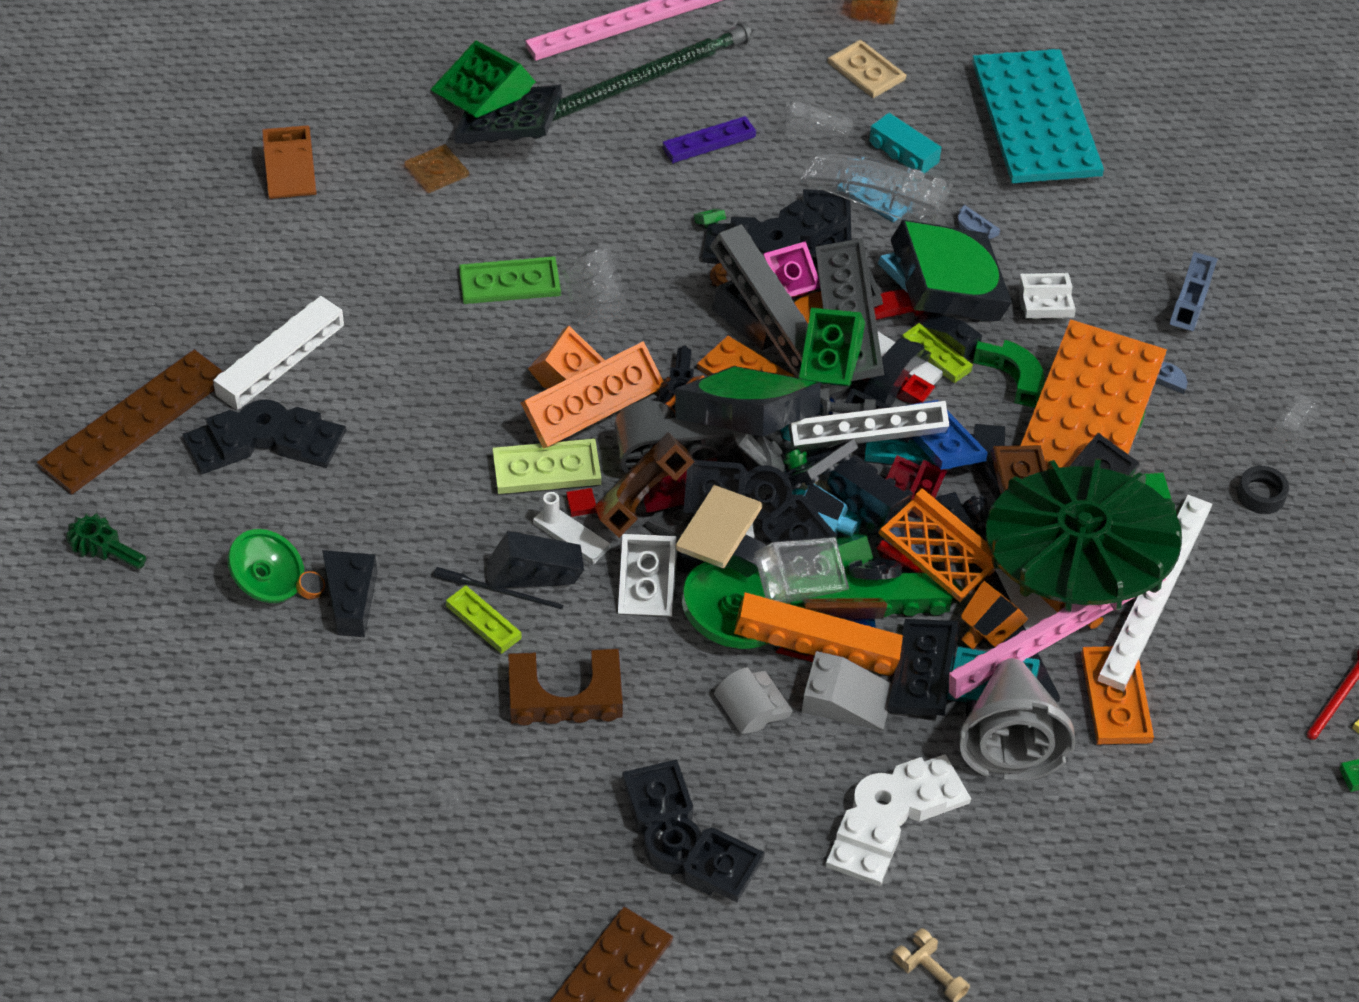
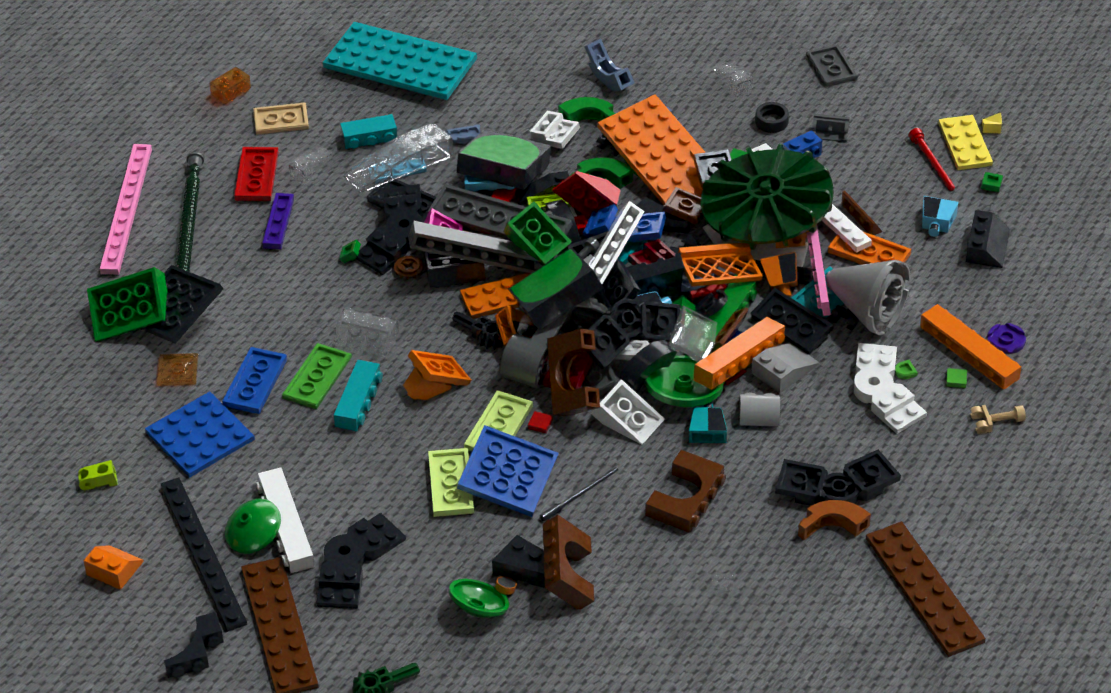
camera: 55 degrees left, 5 degrees down
(47, 372) = (194, 656): none -> black arch
(131, 248) = (111, 565): none -> orange slope
(193, 313) = (203, 554): none -> black plate
(243, 181) = (97, 475): none -> lime leg
(250, 328) = (252, 526): none -> green dish
(289, 162) = (105, 440): dark orange slope -> none
(326, 619) = (559, 540): none -> reddish brown arch
(358, 229) = (199, 434): none -> blue plate
(431, 464) = (445, 473): none -> yellowish green plate
(462, 233) = (254, 380): none -> blue plate
(473, 502) = (507, 470): none -> blue plate
(483, 619) = (600, 509): lime plate -> none
(500, 324) = (358, 395): none -> teal brick
(533, 562) = (579, 462): black wedge -> none
(566, 529) = (563, 437): white piece -> none
(592, 395) = (466, 372): orange plate -> none
(629, 851) = (836, 513): none -> dark orange arch
(687, 659) = (707, 425): none -> teal torso
(718, 526) = (638, 350): tan tile -> none
(764, 89) = (256, 174): none -> red plate
(794, 458) = (602, 297): green plate -> none
(928, 397) = (600, 221): none -> blue plate
(940, 826) = (905, 370): none -> bright green tile
(954, 371) = (587, 192): none -> red slope
(970, 890) = (956, 378): none -> bright green tile
(1031, 881) = (970, 346): none -> orange brick
(1084, 926) = (1009, 343): none -> dark purple tile
(1108, 305) = (586, 108): none -> green arch
(1175, 657) = (859, 214): none -> reddish brown slope
(1229, 543) = (805, 142): none -> blue brick
(1241, 740) = (938, 215): none -> medium azure torso
(1243, 814) = (987, 240): none -> black slope
(1297, 556) = (831, 127): none -> dark grey hinge

